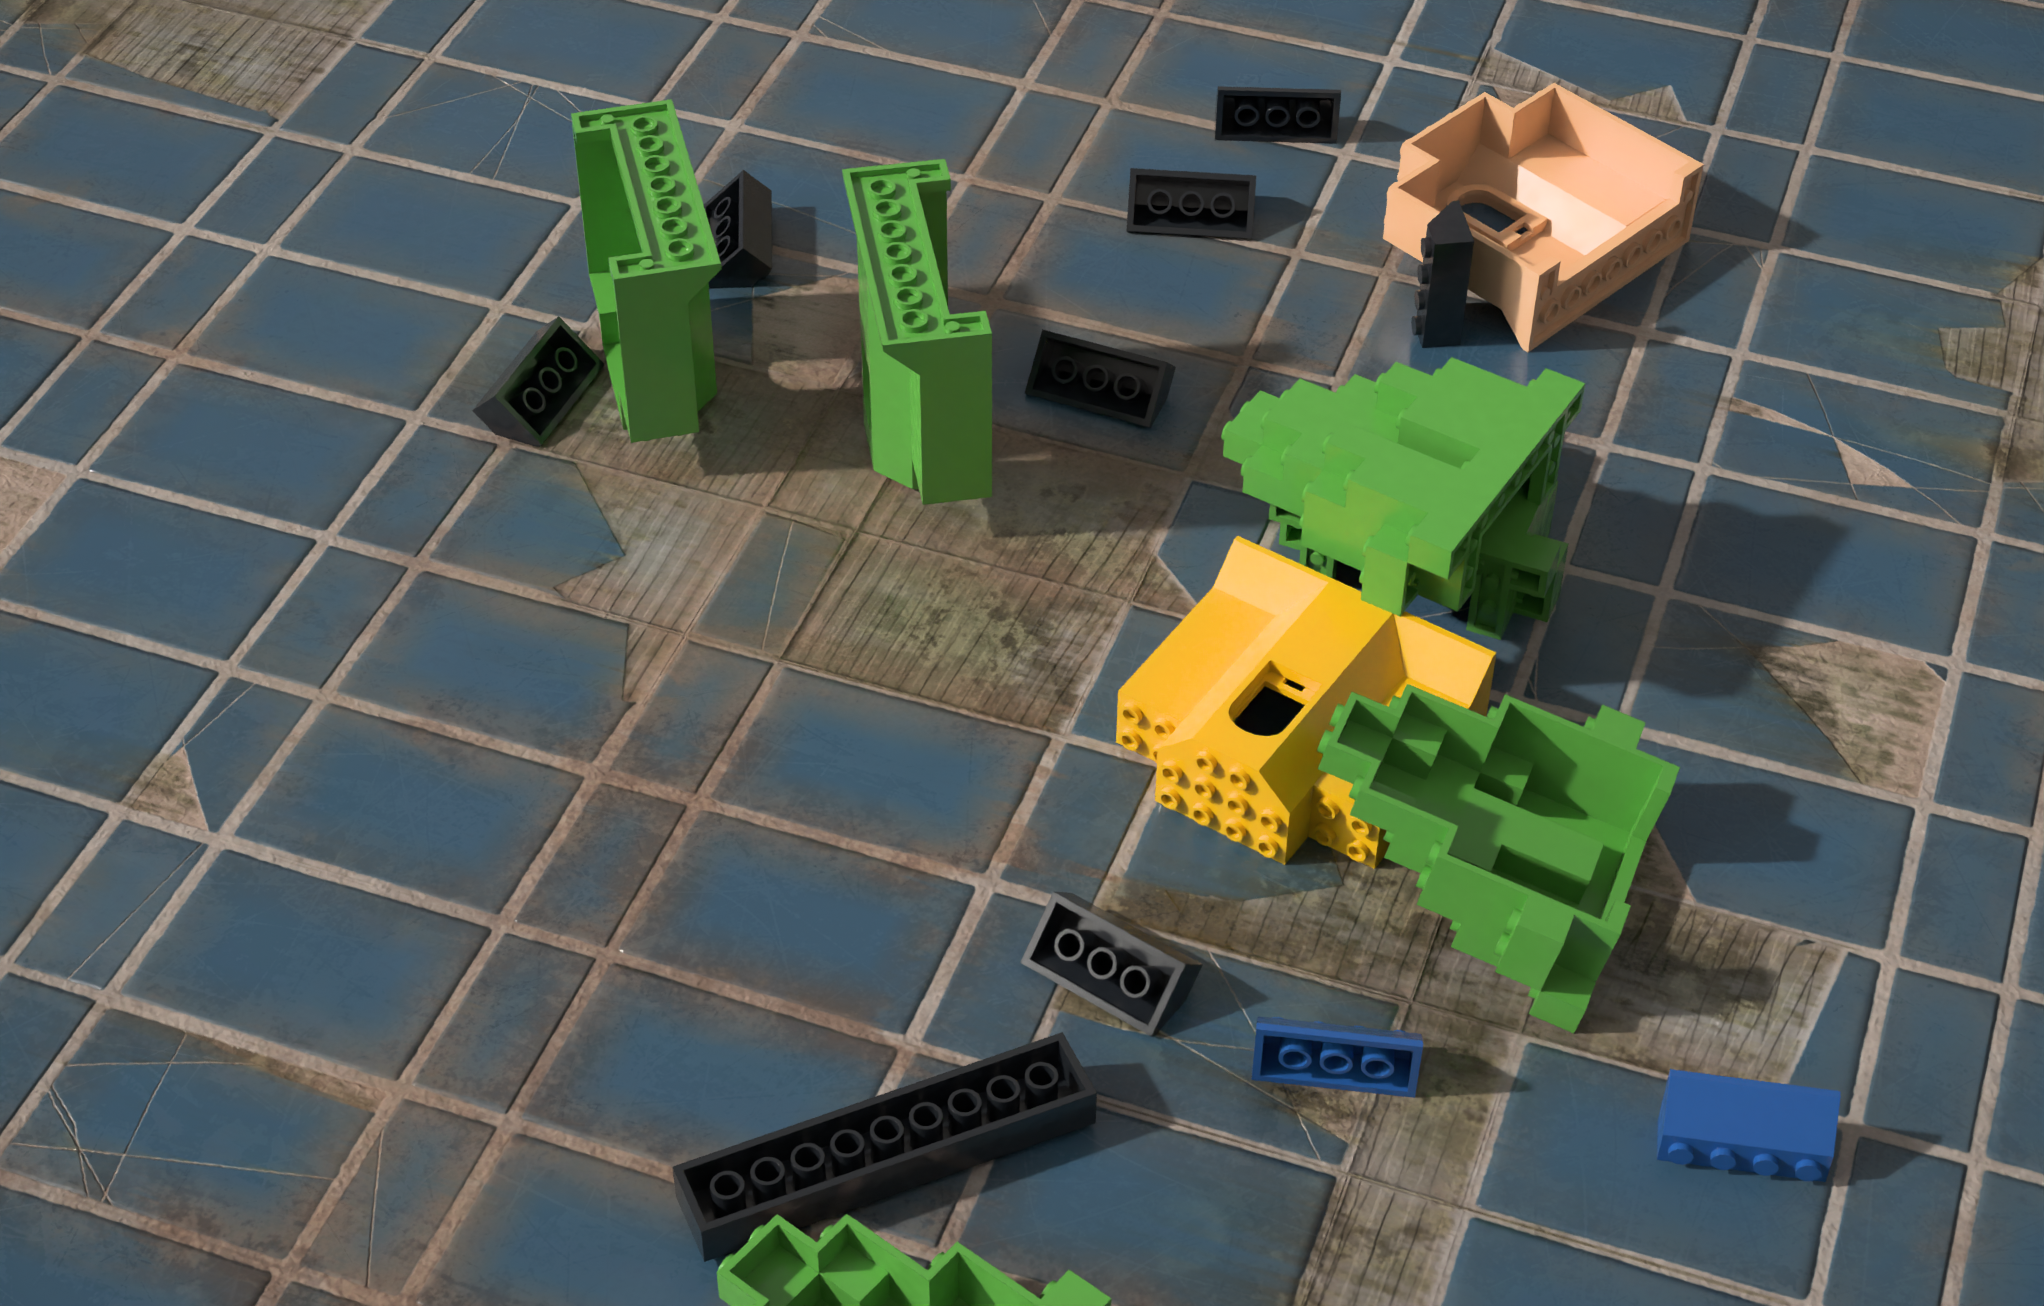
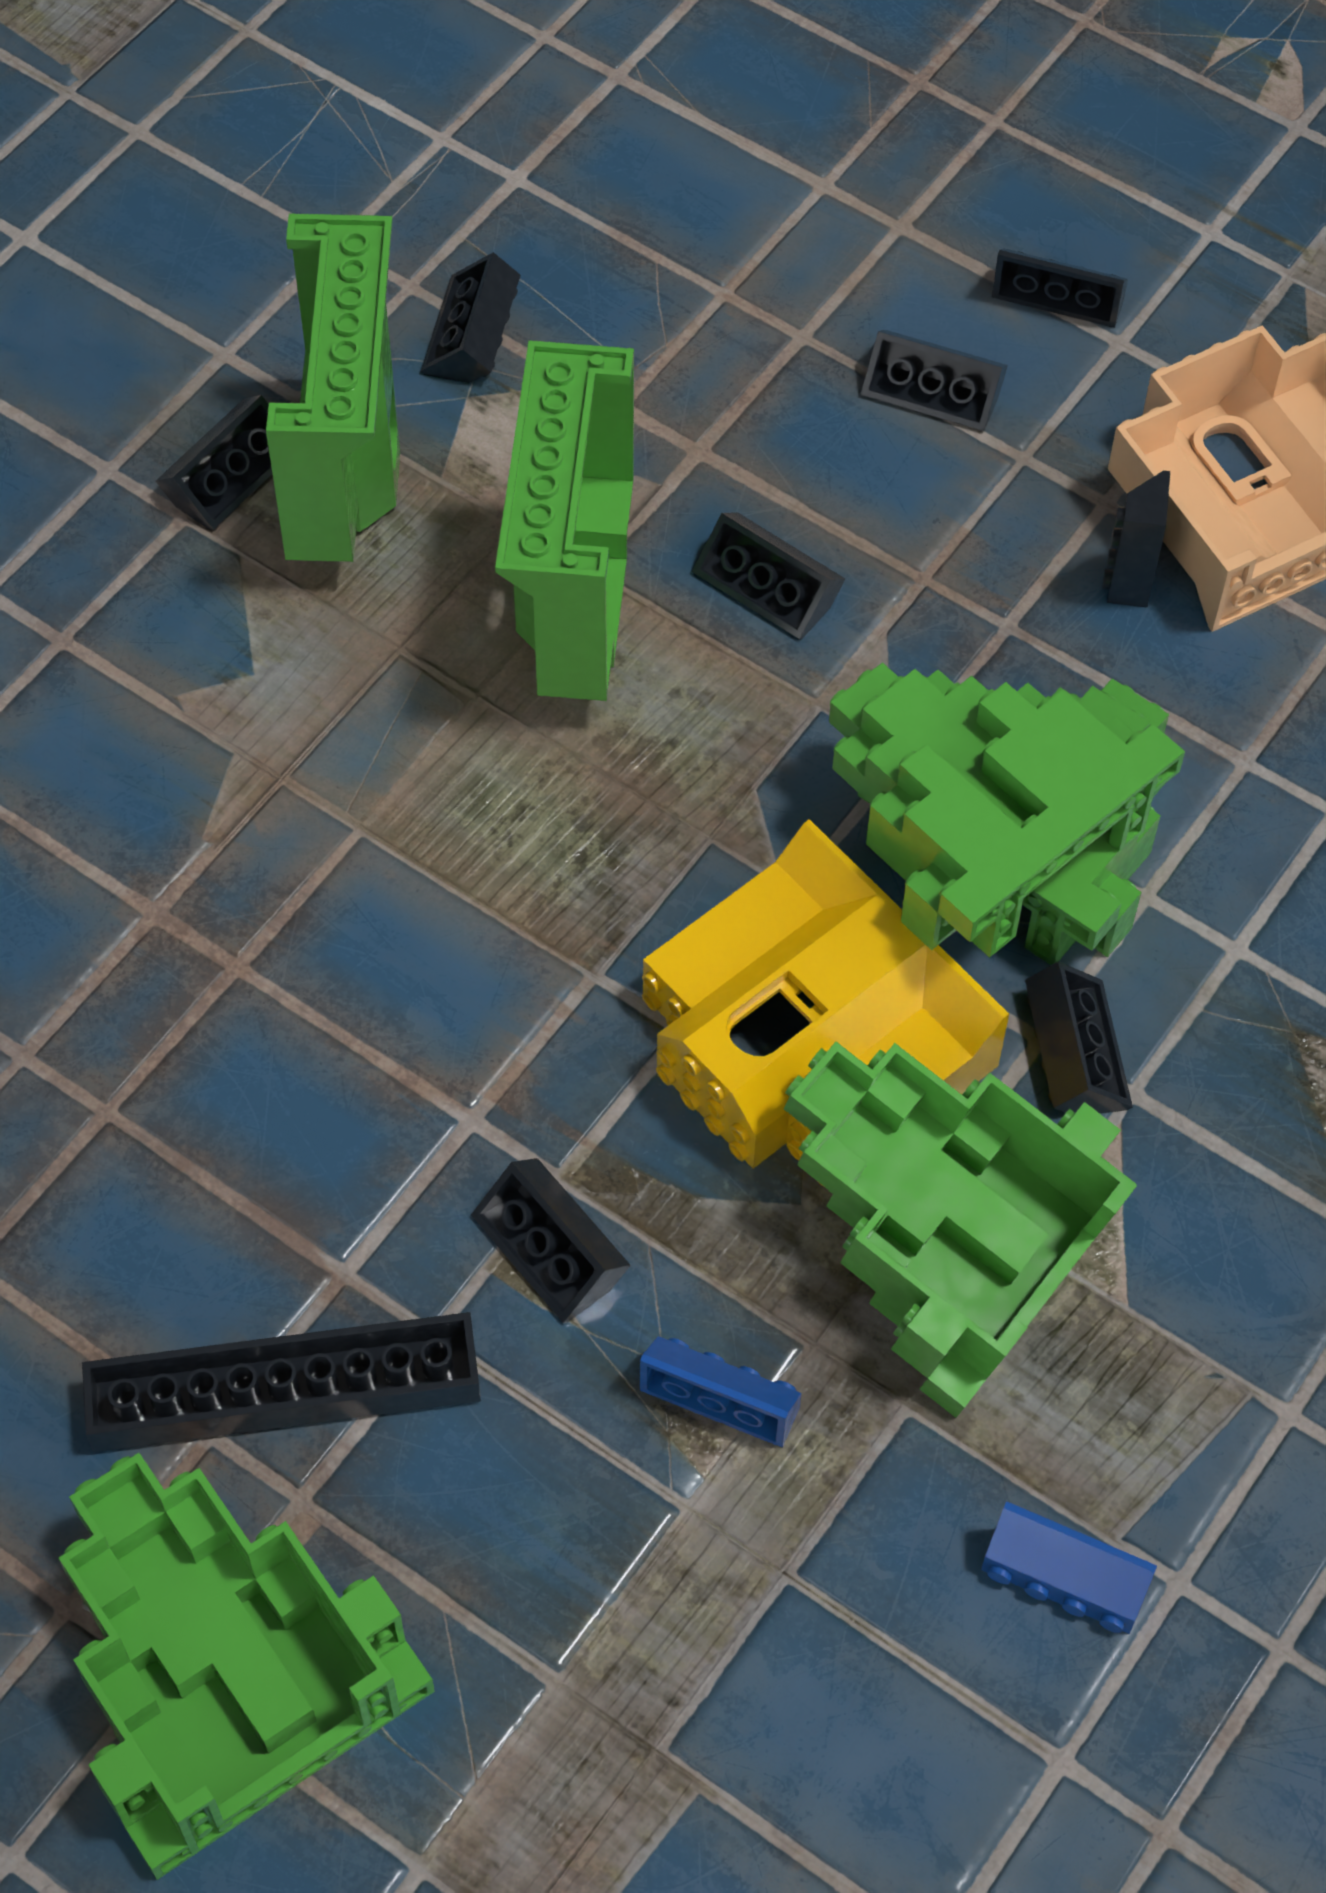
camera: 15 degrees right, 15 degrees up
(1541, 674) = (1077, 1040): none -> black slope

